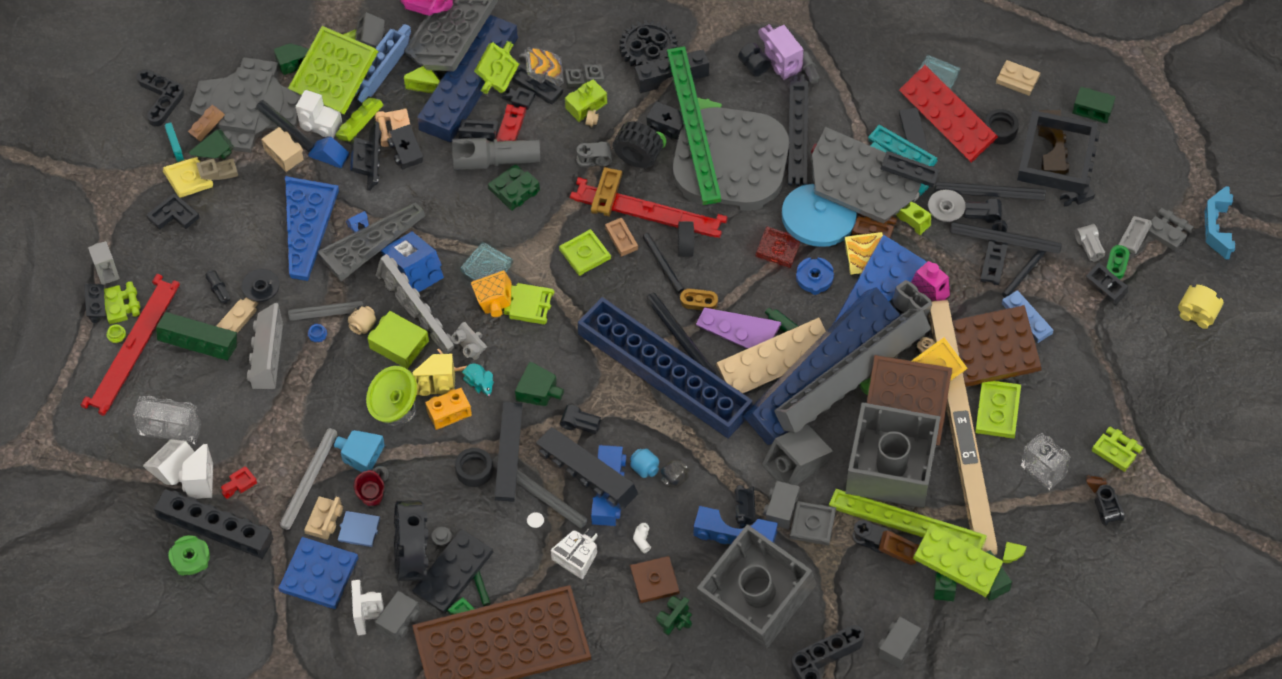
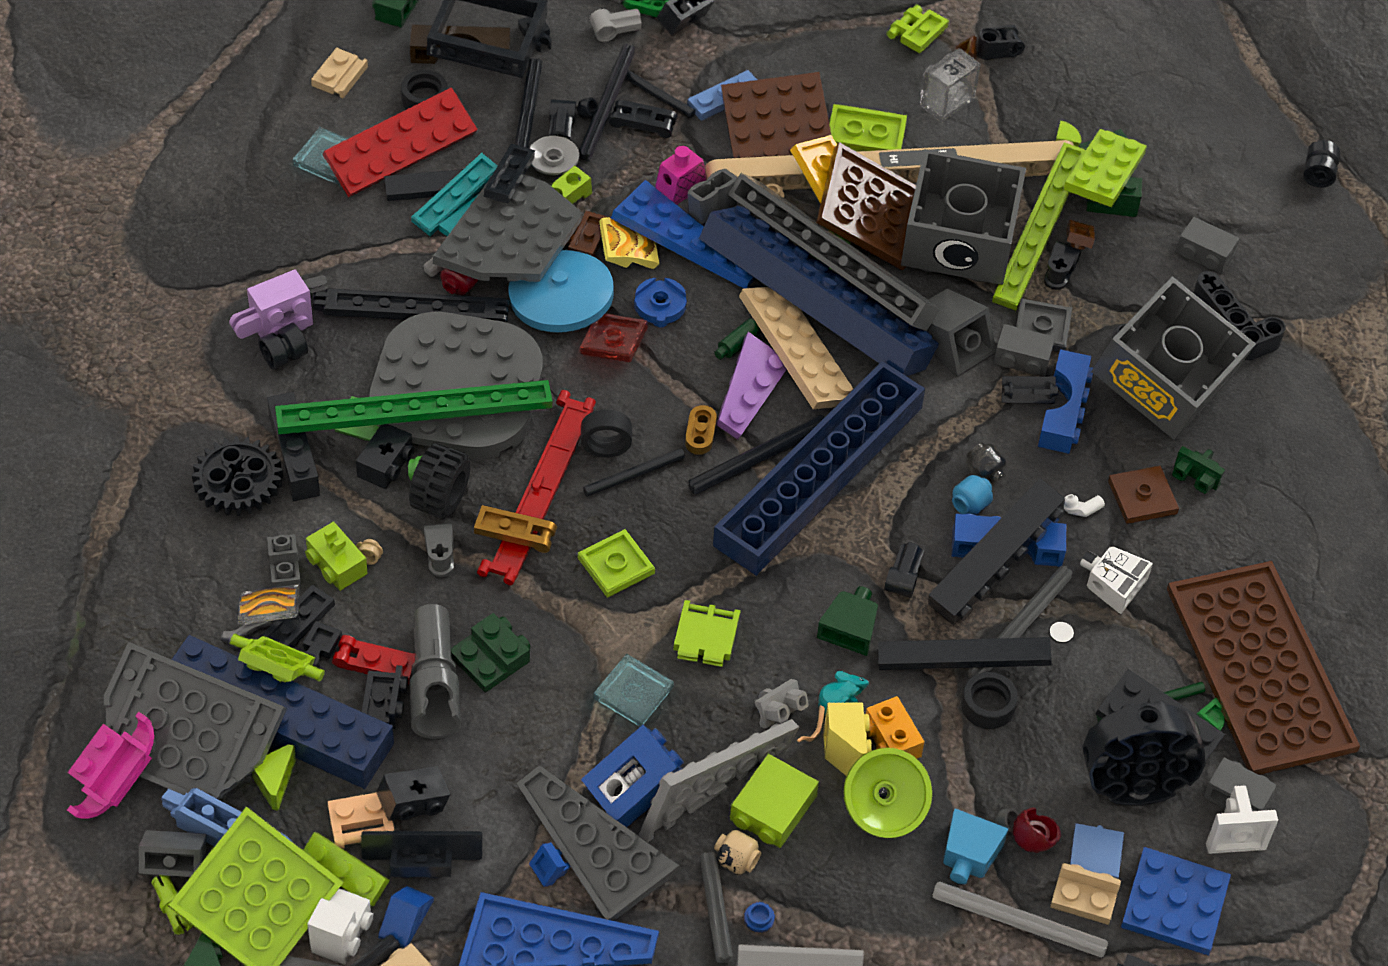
camera: 95 degrees left, 5 degrees down
(493, 293) = (698, 670): light orange torso -> none
(621, 236) = (590, 517): medium nougat plate -> none

